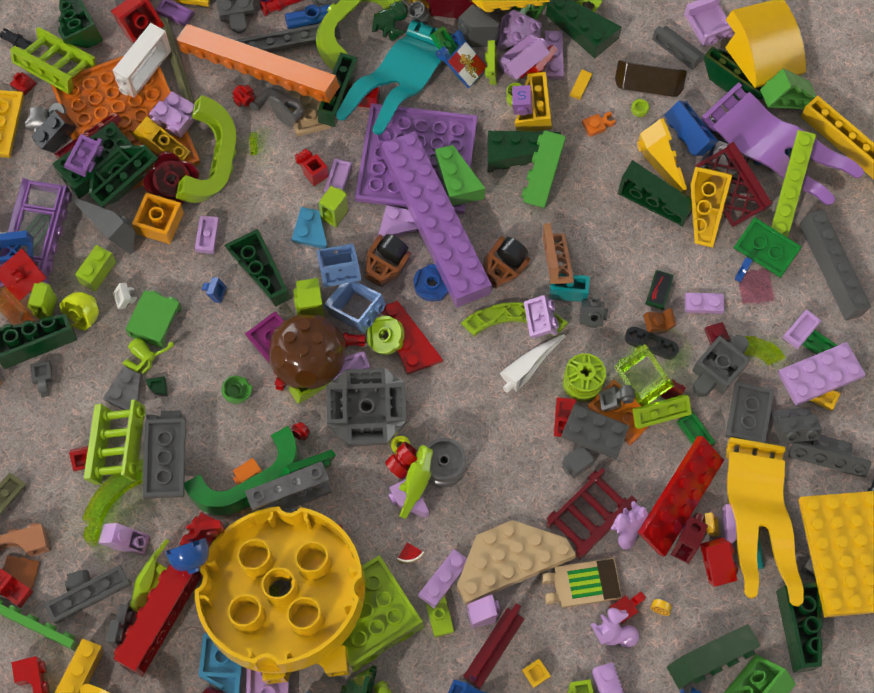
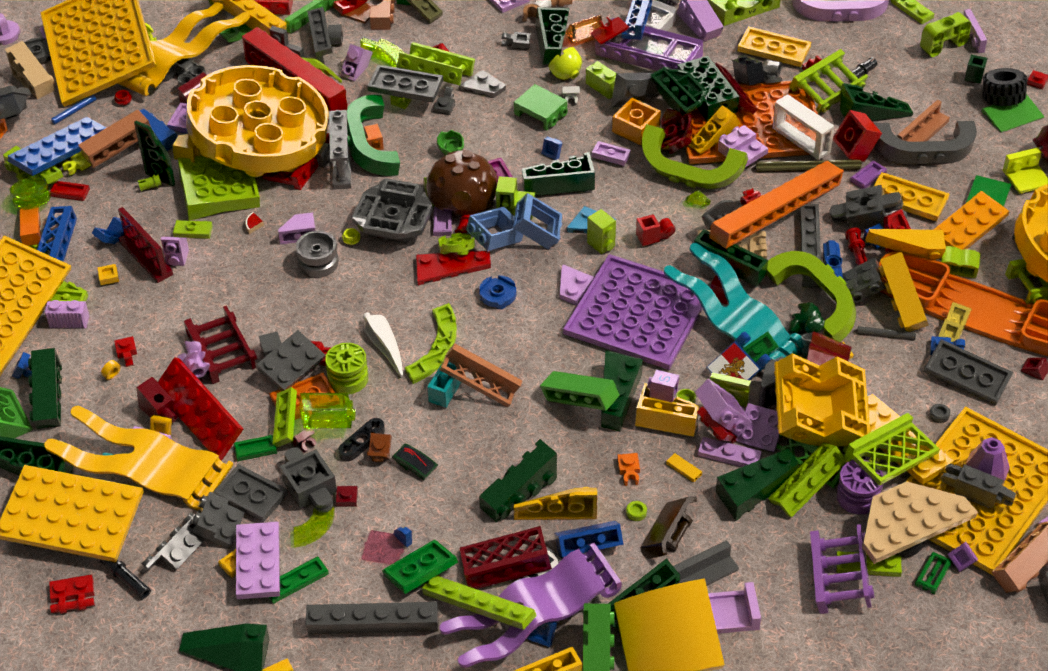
camera: 110 degrees right, 20 degrees down
(42, 300) = (582, 40): lime brick -> none
(83, 155) = (702, 66): medium lavender bracket -> none
(141, 350) = (508, 96): lime piece -> none
(158, 385) = (480, 104): dark green tile -> none
(189, 556) = (307, 65): blue cylinder -> none
(208, 528) = (324, 84): red plate -> none
(300, 431) = (395, 174): red plate -> none
(326, 458) = (355, 164): green plate -> none
(338, 174) = (639, 252): lavender tile -> none
(391, 248) = (540, 258): dark orange piece -> none
(401, 462) = (334, 225): red wheel -> none
(416, 479) = (305, 218): lime animal -> none
(436, 219) = (558, 296): medium lavender brick -> none
(443, 579) = (219, 235): lavender plate -> none
(457, 177) = (598, 321): bright green wedge -> none
(508, 557) = (213, 278): tan plate -> none
(509, 251) = (500, 346): dark orange piece -> none
(541, 316) = (422, 355): lavender bracket -> none
(583, 583) = (163, 326): tile -> none
(593, 313) = (411, 395): dark grey brick -> none
(612, 397) = (313, 383): dark grey plate -> none
(612, 633) = (112, 326): lavender animal -> none
(704, 303) = (384, 496): lavender plate -> none
(708, 198) = (494, 523): yellow wedge -> none
(719, 561) = (125, 412): red brick -> none
(802, 329) = (314, 564): lavender tile -> none

